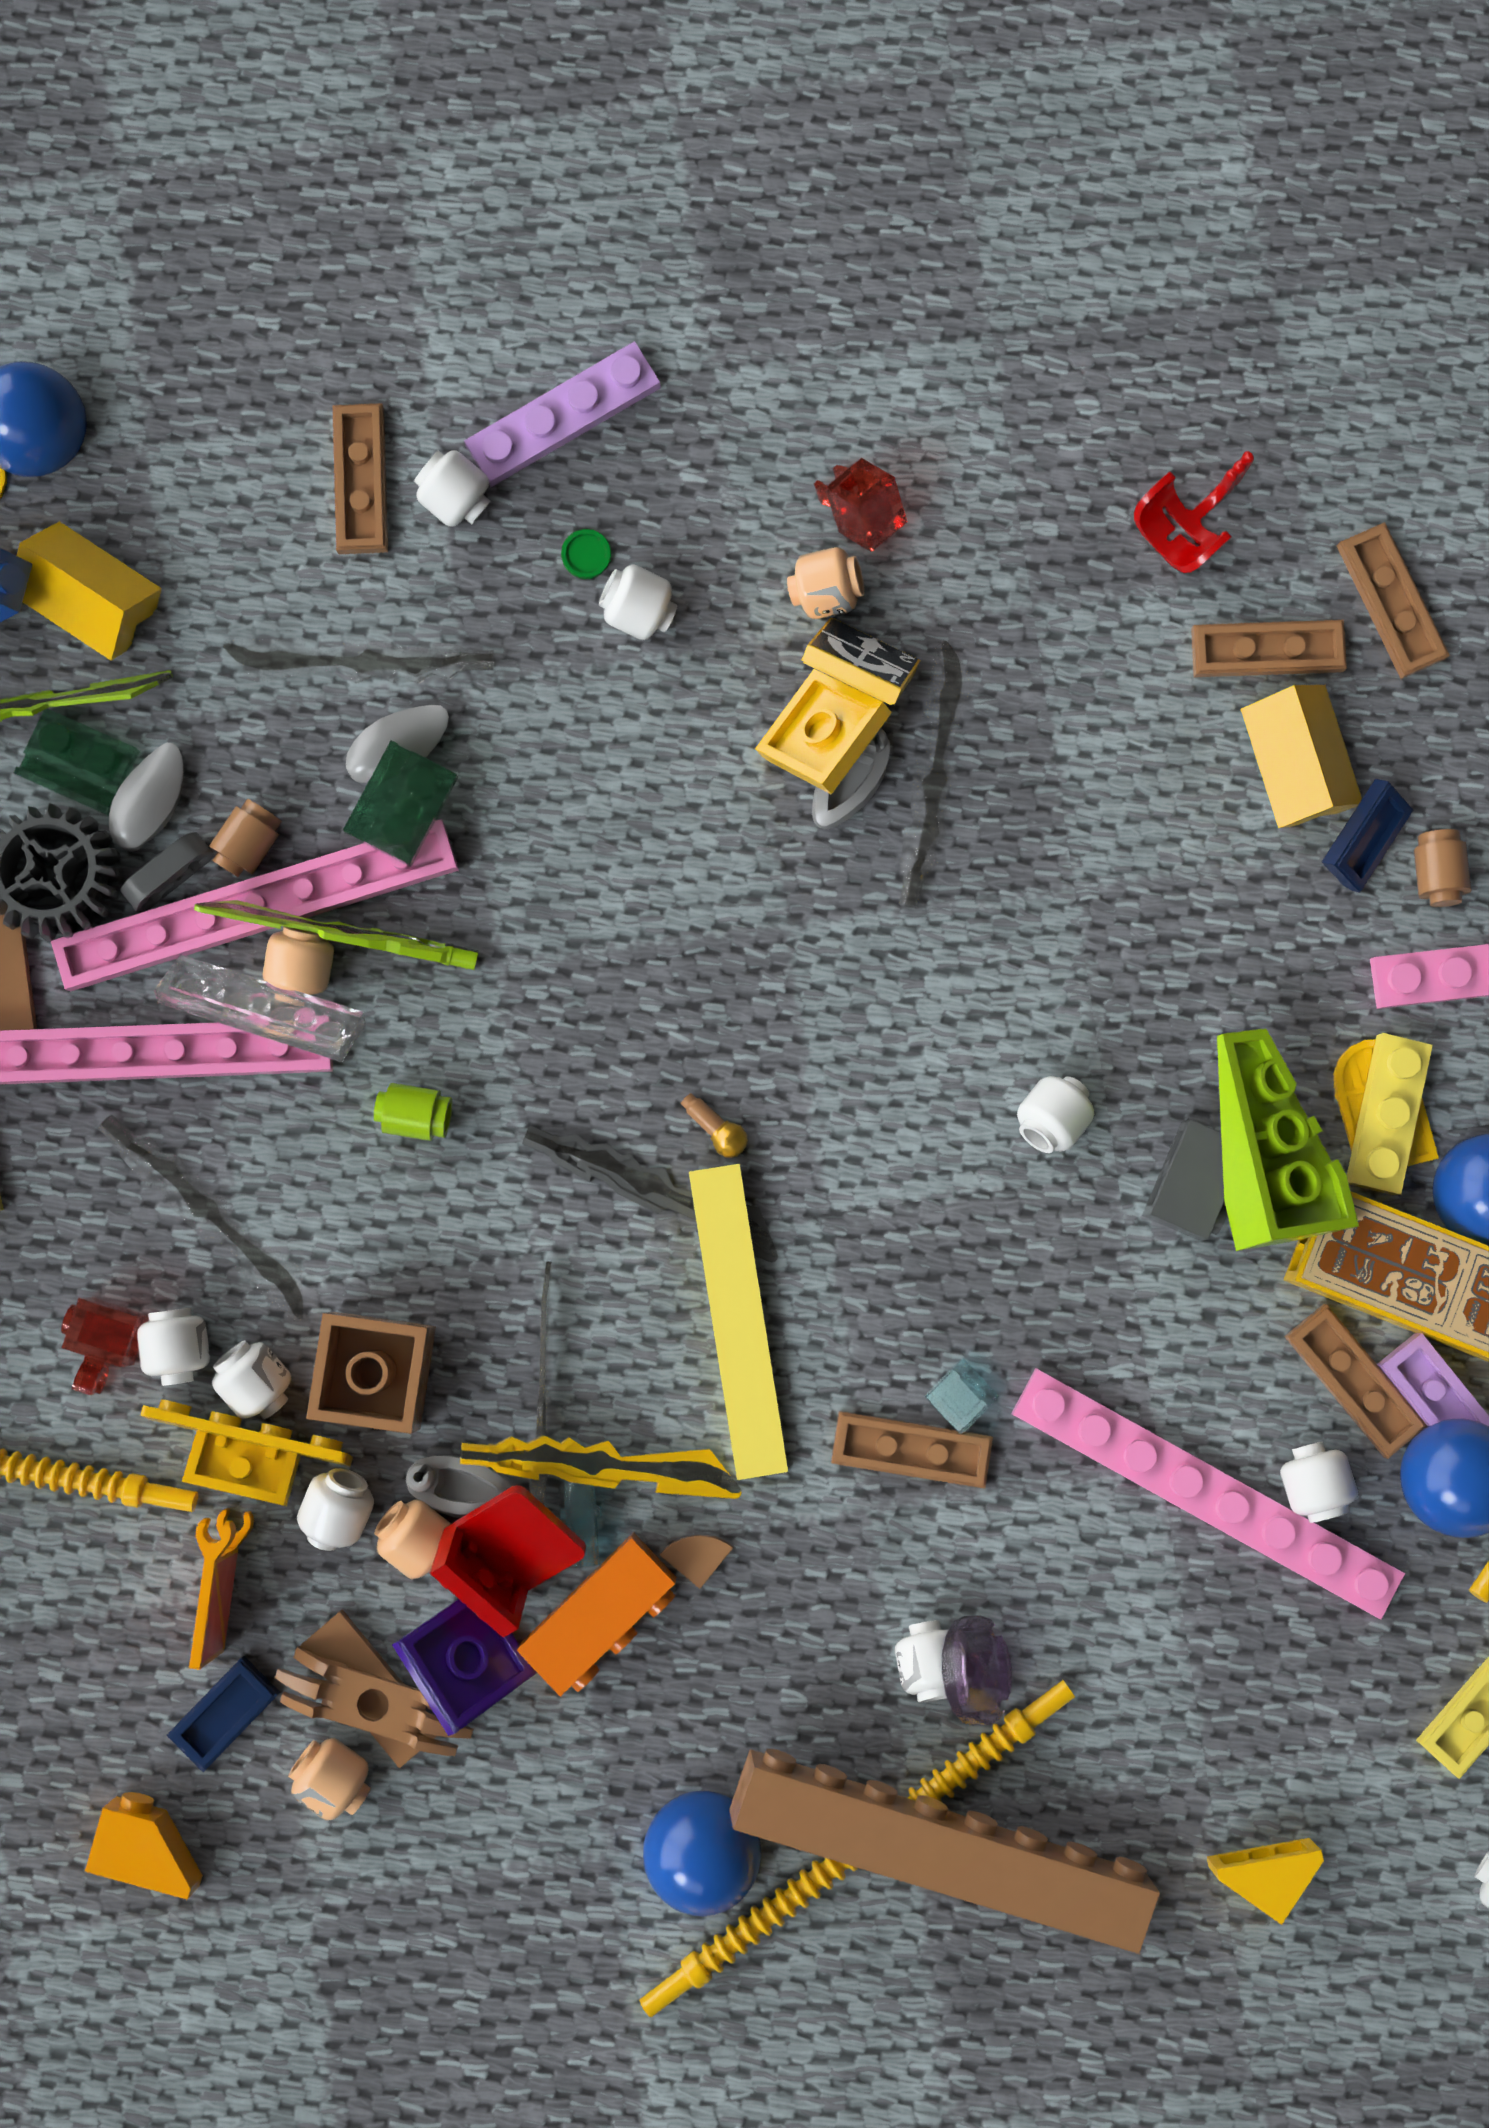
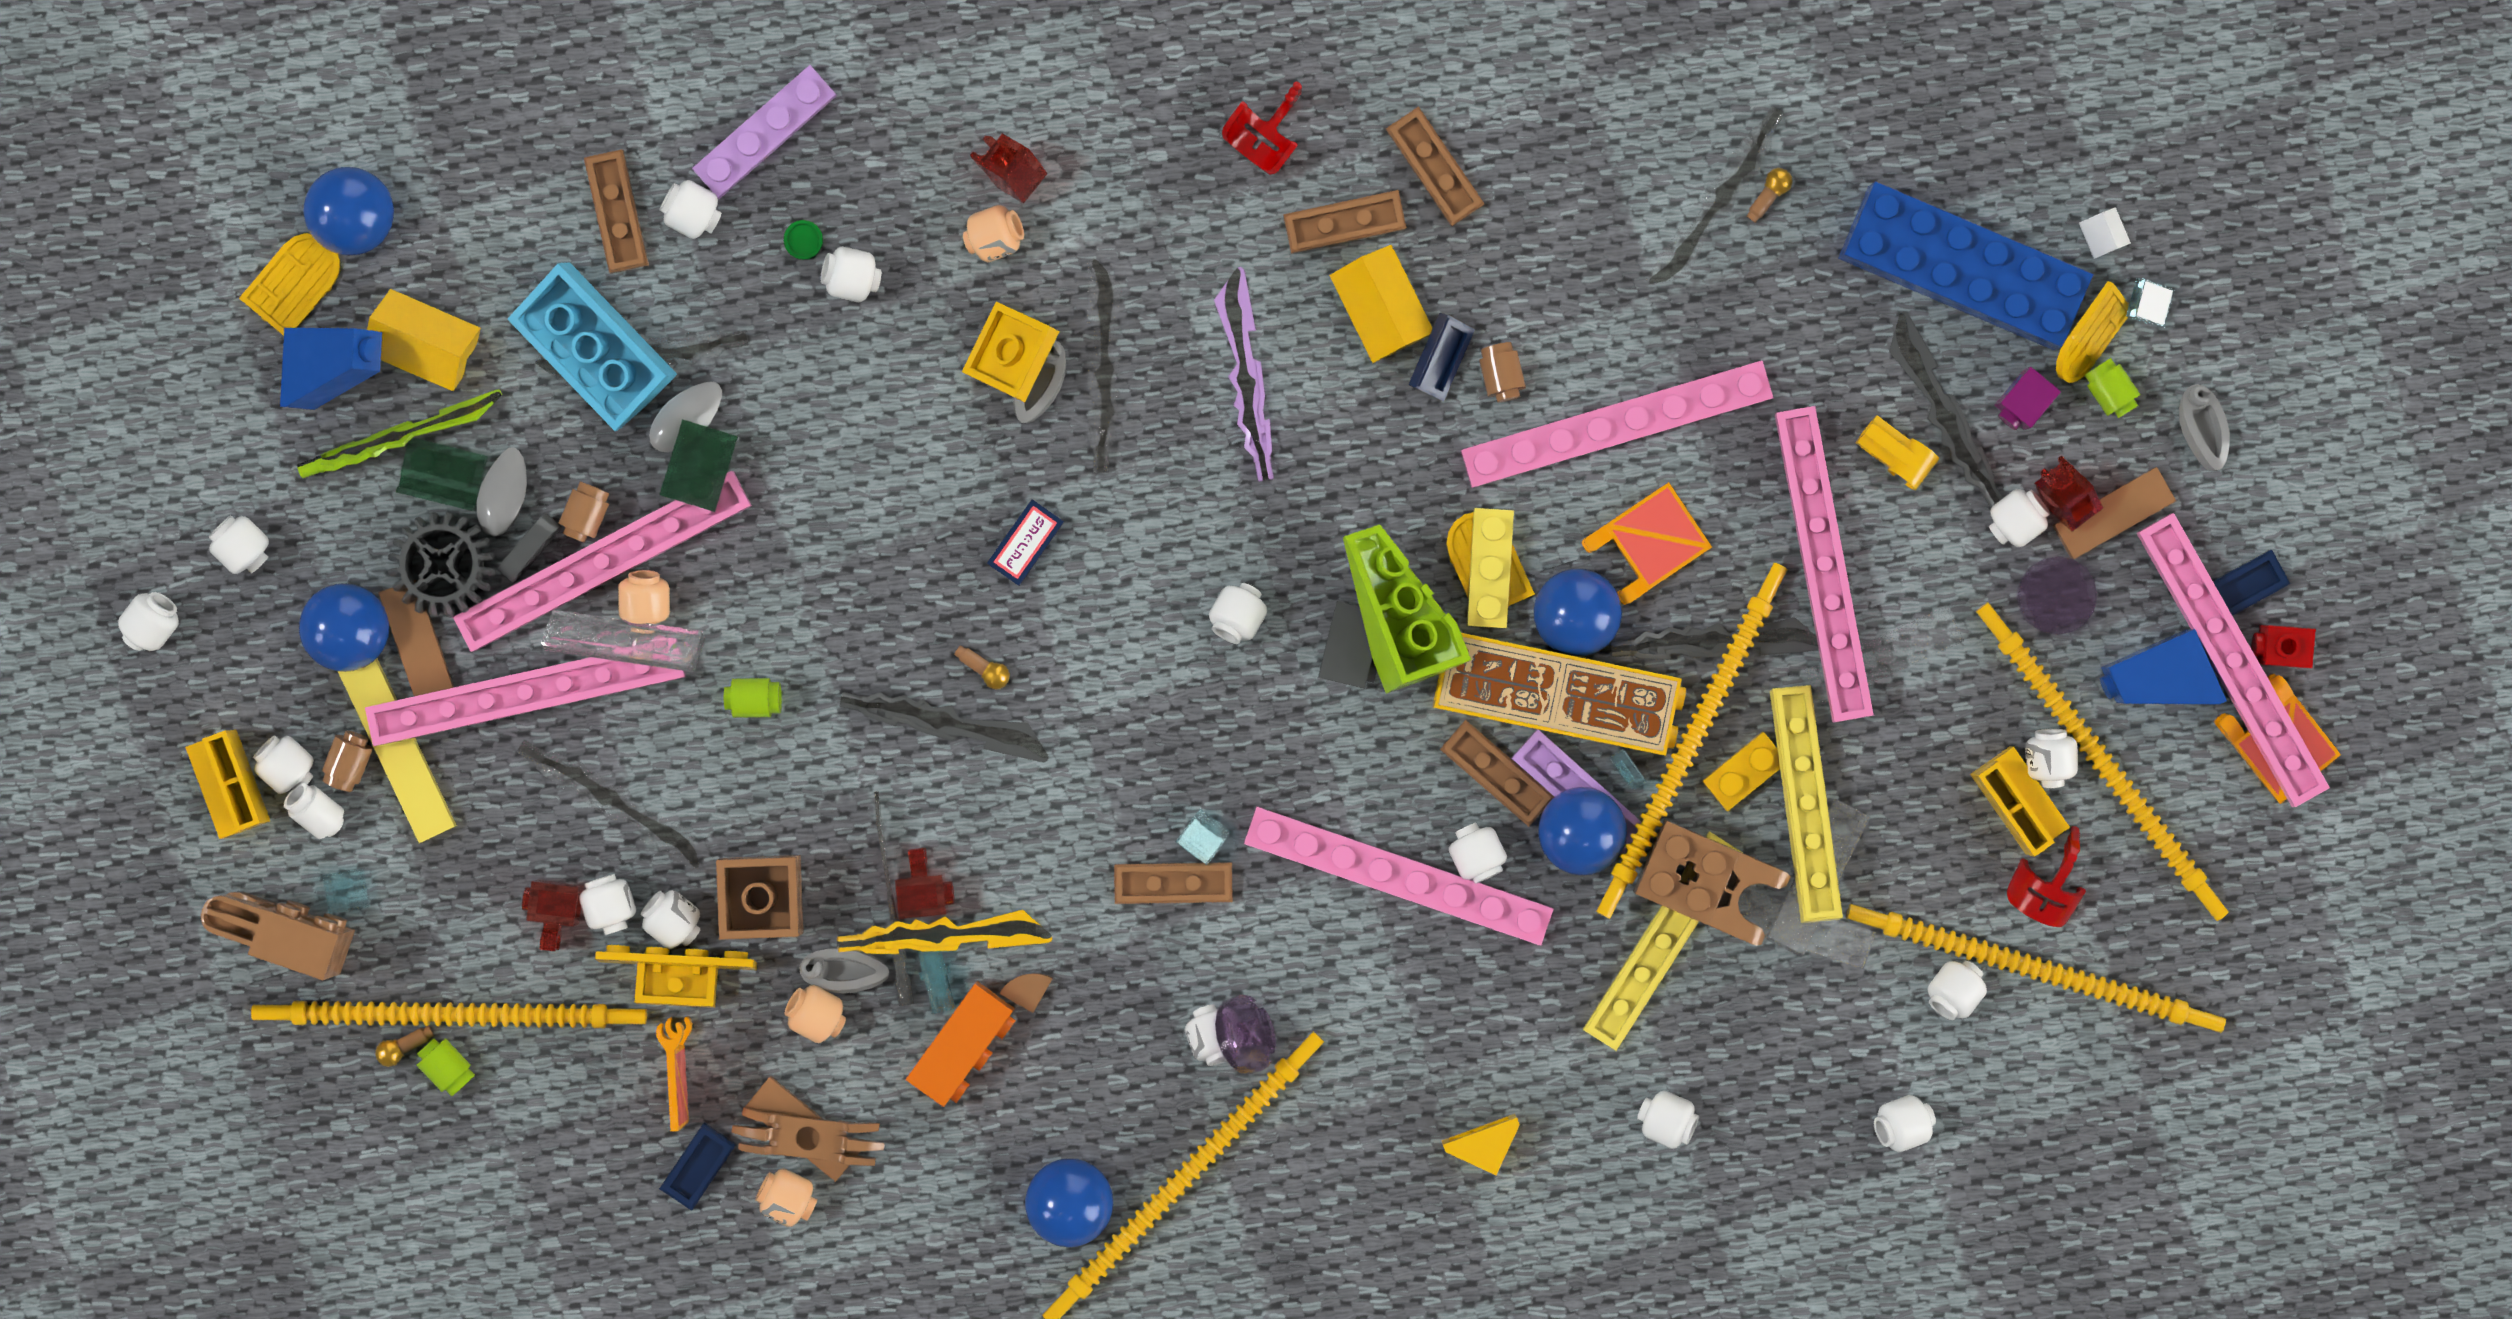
camera: 15 degrees left, 5 degrees up
(142, 1848) = (658, 1270): light orange slope -> none
(296, 634) = (591, 345): none -> medium azure slope
(335, 1509) = (752, 1002): white head -> none
(341, 932) = (674, 571): lime sword -> none
(461, 1664) = (868, 1093): dark purple tile -> none
(502, 1554) = (883, 1011): red bracket -> none
(582, 1404) = (923, 893): none -> clear red brick
(738, 1322) = (1026, 810): light yellow tile -> none
(797, 977) = (1025, 542): none -> tile
(860, 661) = (1030, 292): tile -> none
(943, 1849) = (1242, 1166): medium nougat brick -> none
(1114, 818) = (1247, 377): none -> lavender sword

